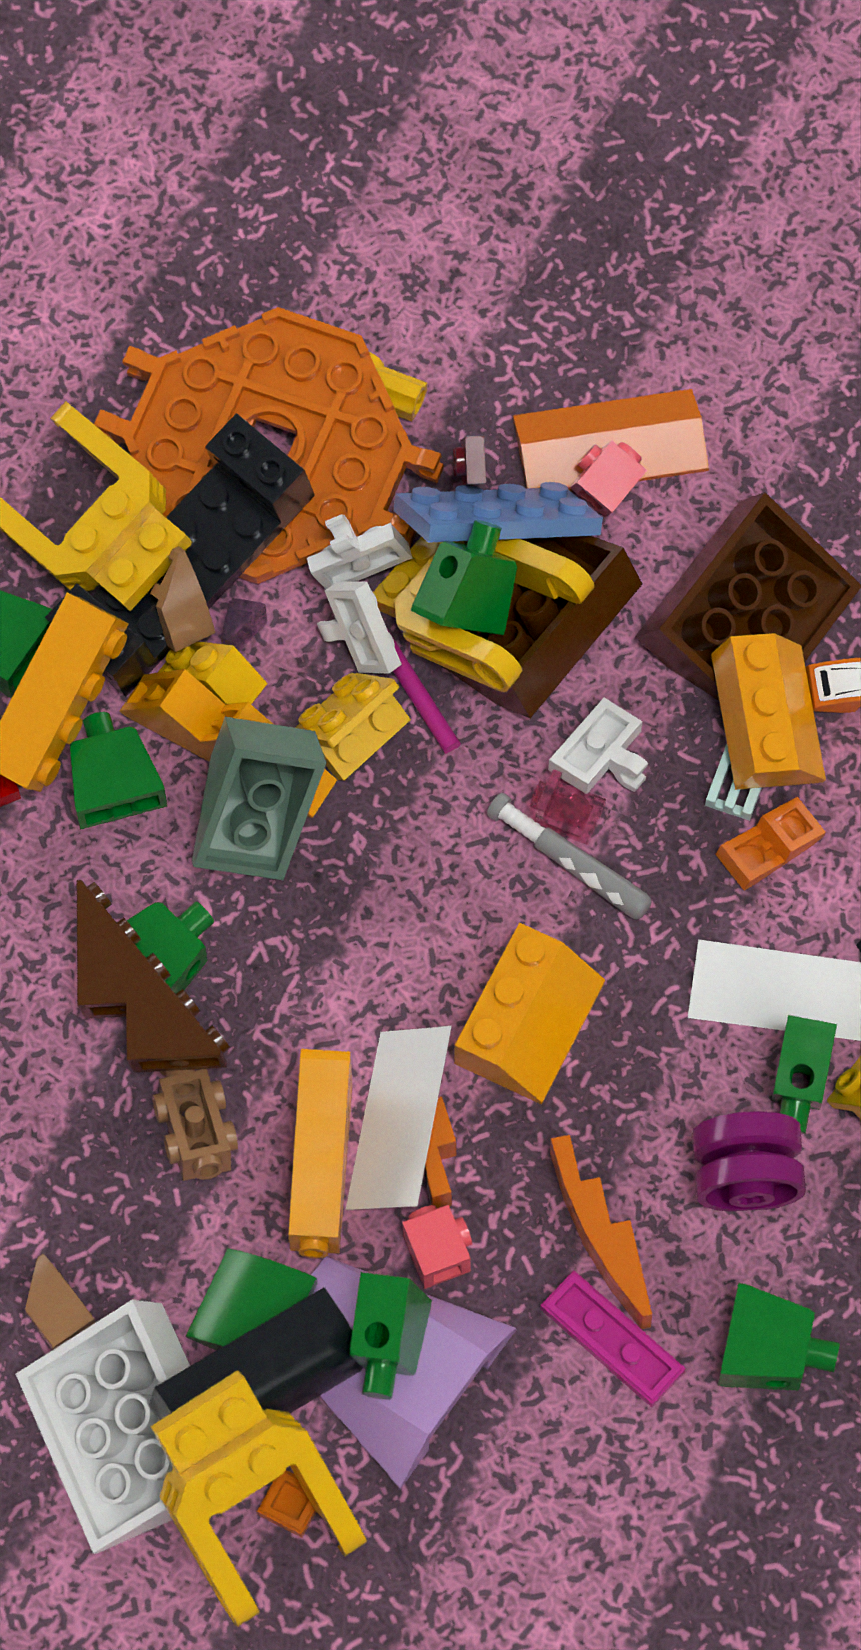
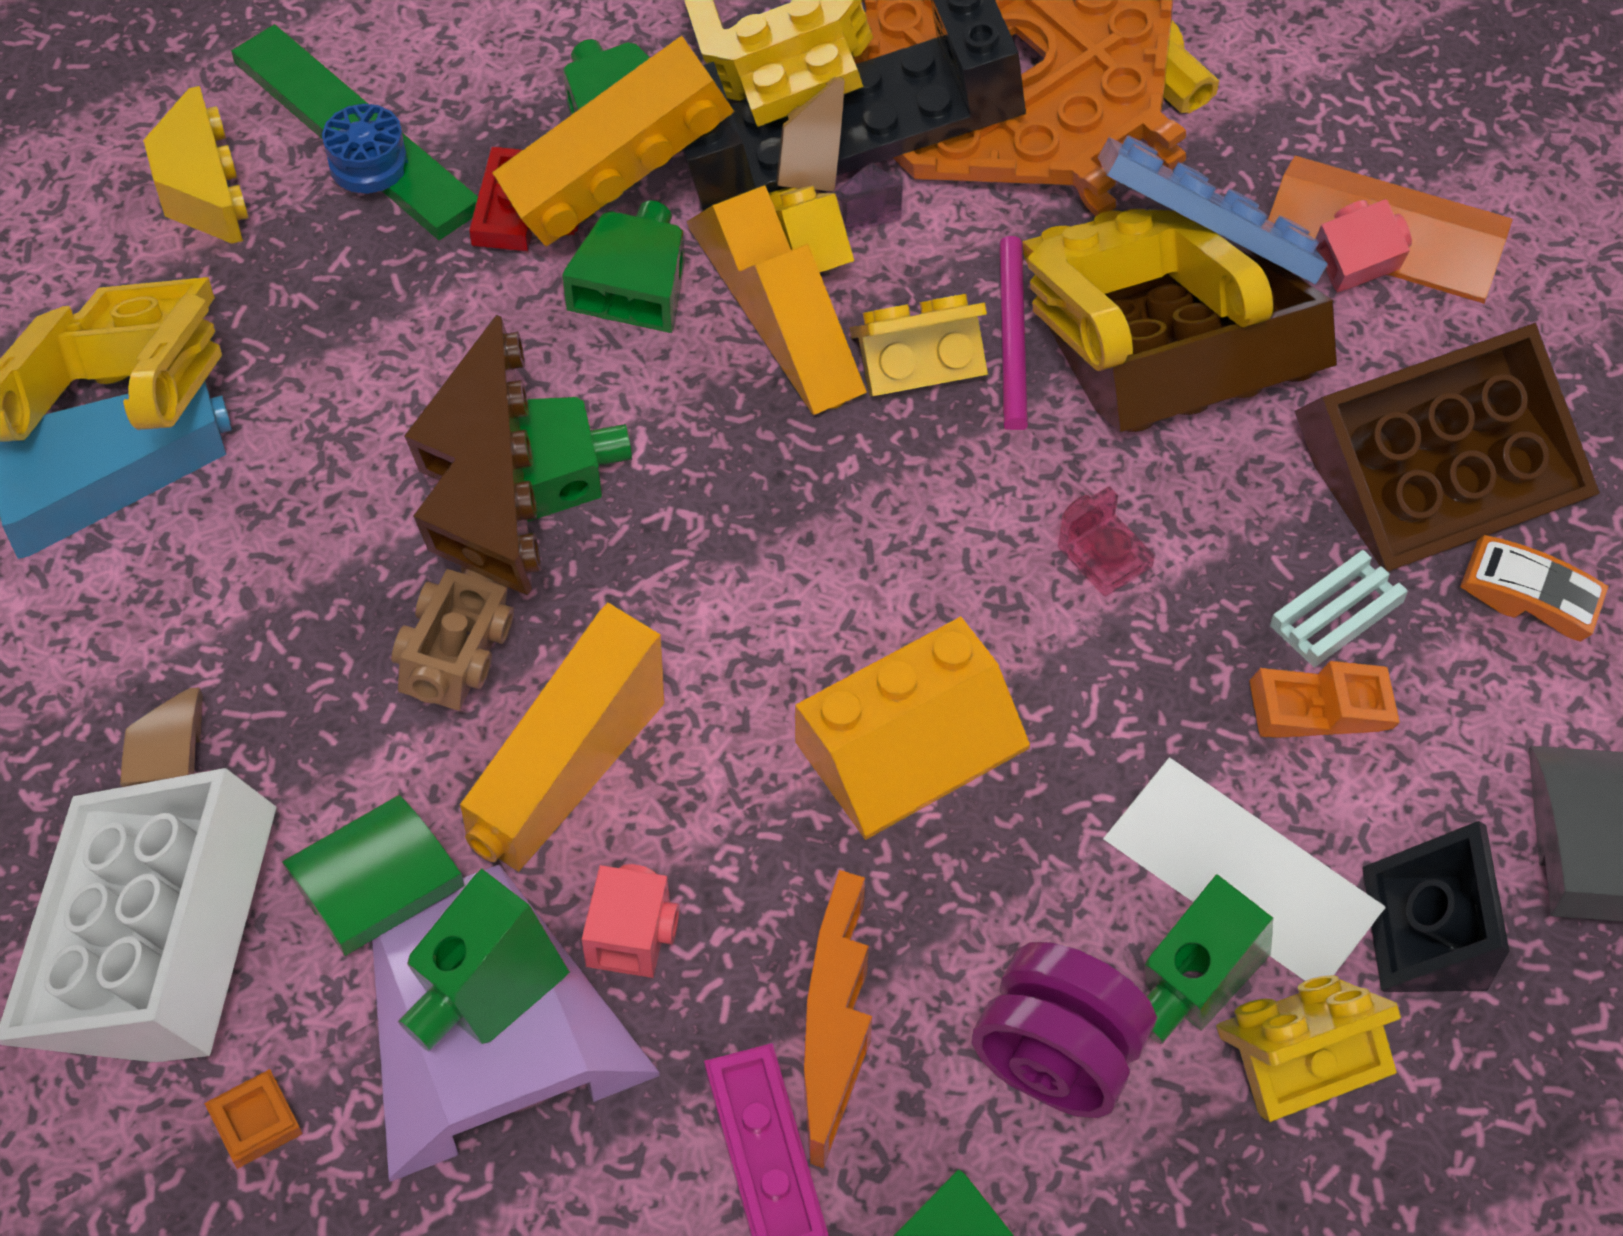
camera: 30 degrees right, 10 degrees down
(224, 1453) = (172, 985): yellow plate -> none
(257, 797) = (752, 345): sand green slope -> none
(282, 1360) = (284, 932): black brick -> none
(355, 557) = (1030, 188): white plate -> none
(361, 627) = (989, 249): white plate -> none
(398, 1118) = (682, 758): white sticker -> none
(441, 1147) = (704, 811): orange slope -> none
(469, 583) = (1130, 244): green torso -> none
(470, 461) = (1214, 141): hinge -> none
(587, 869) = (1091, 628): light grey piece -> none
(599, 746) = (1182, 497): white plate -> none
(767, 712) = (1405, 552): light orange slope -> none

